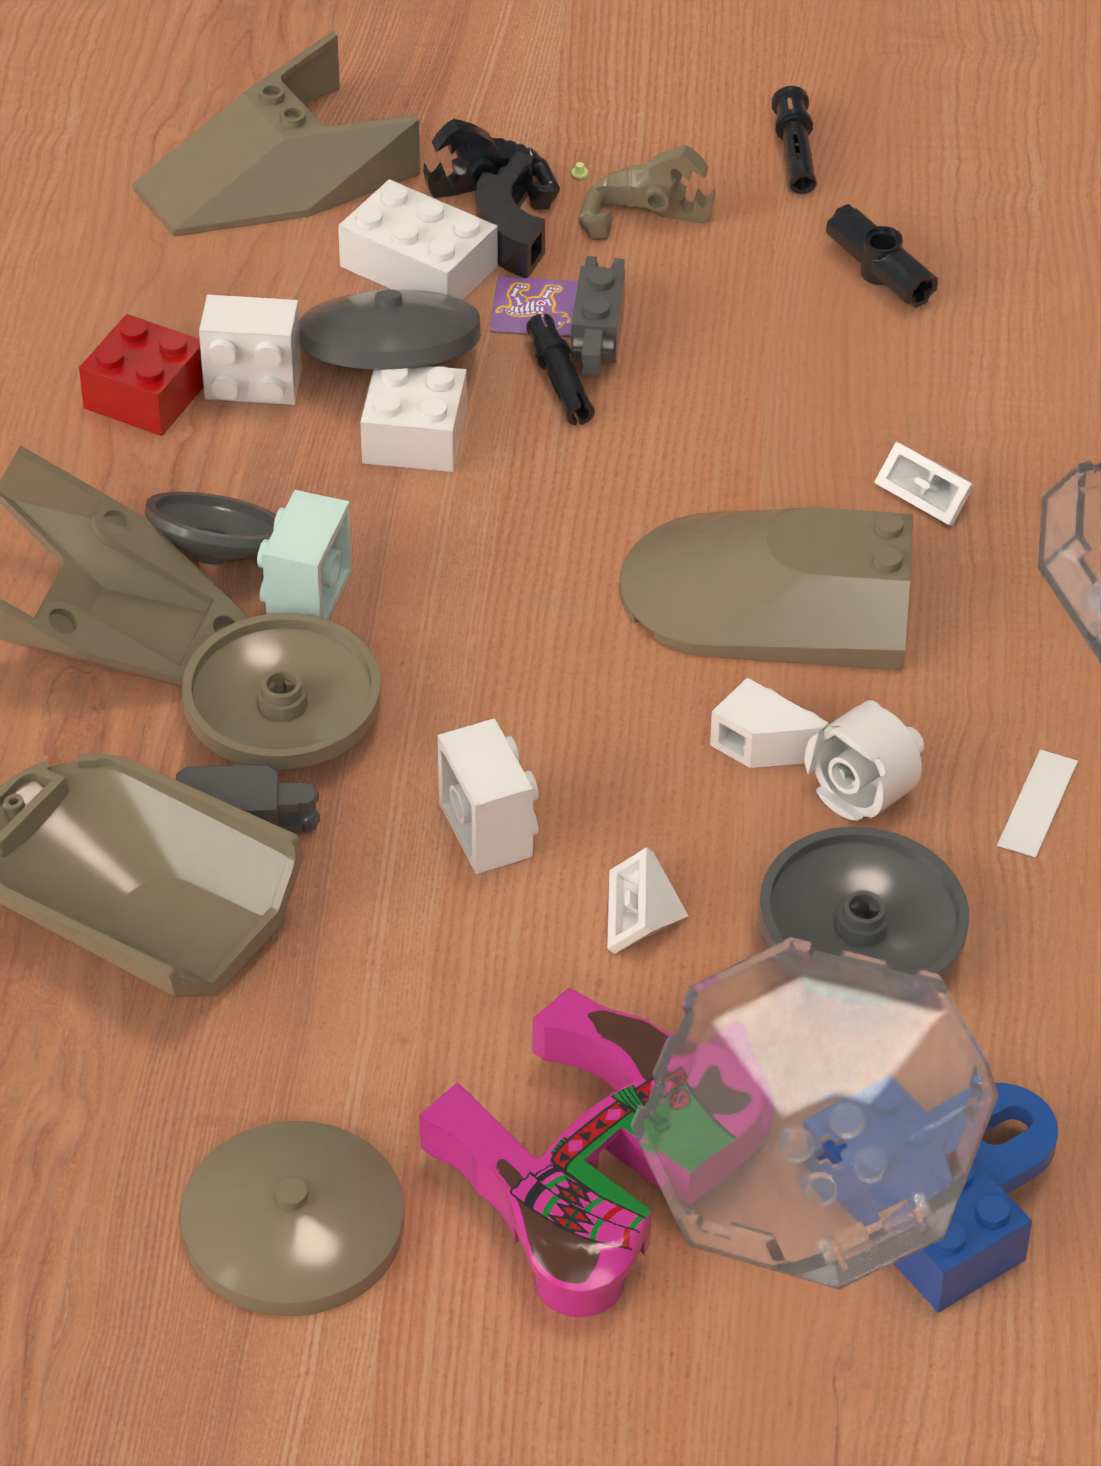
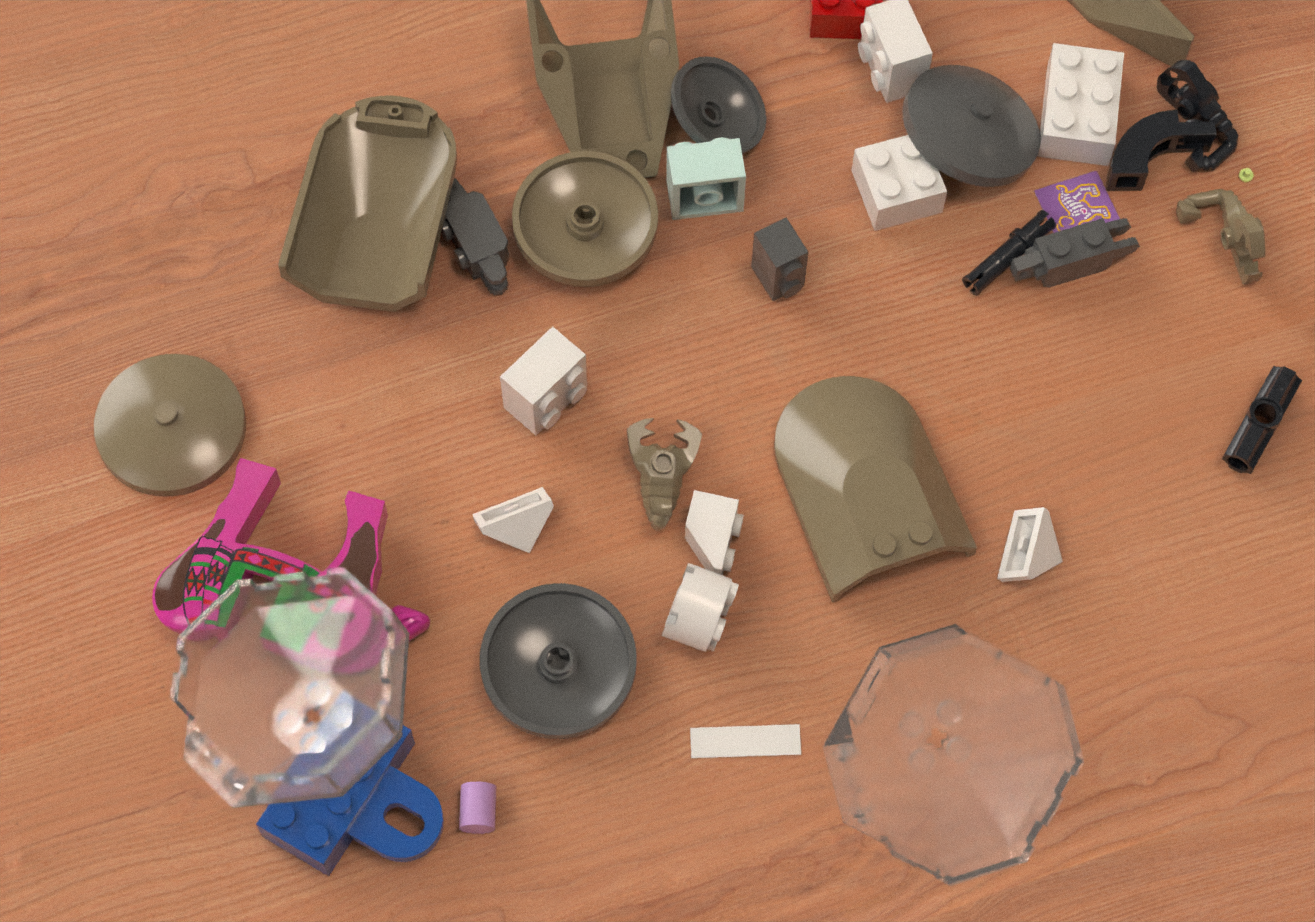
camera: 65 degrees right, 20 degrees up
(459, 536) = (779, 259): none -> dark grey brick
(660, 745) = (661, 468): none -> dark tan animal
(1015, 1062) = (477, 807): none -> lavender piece

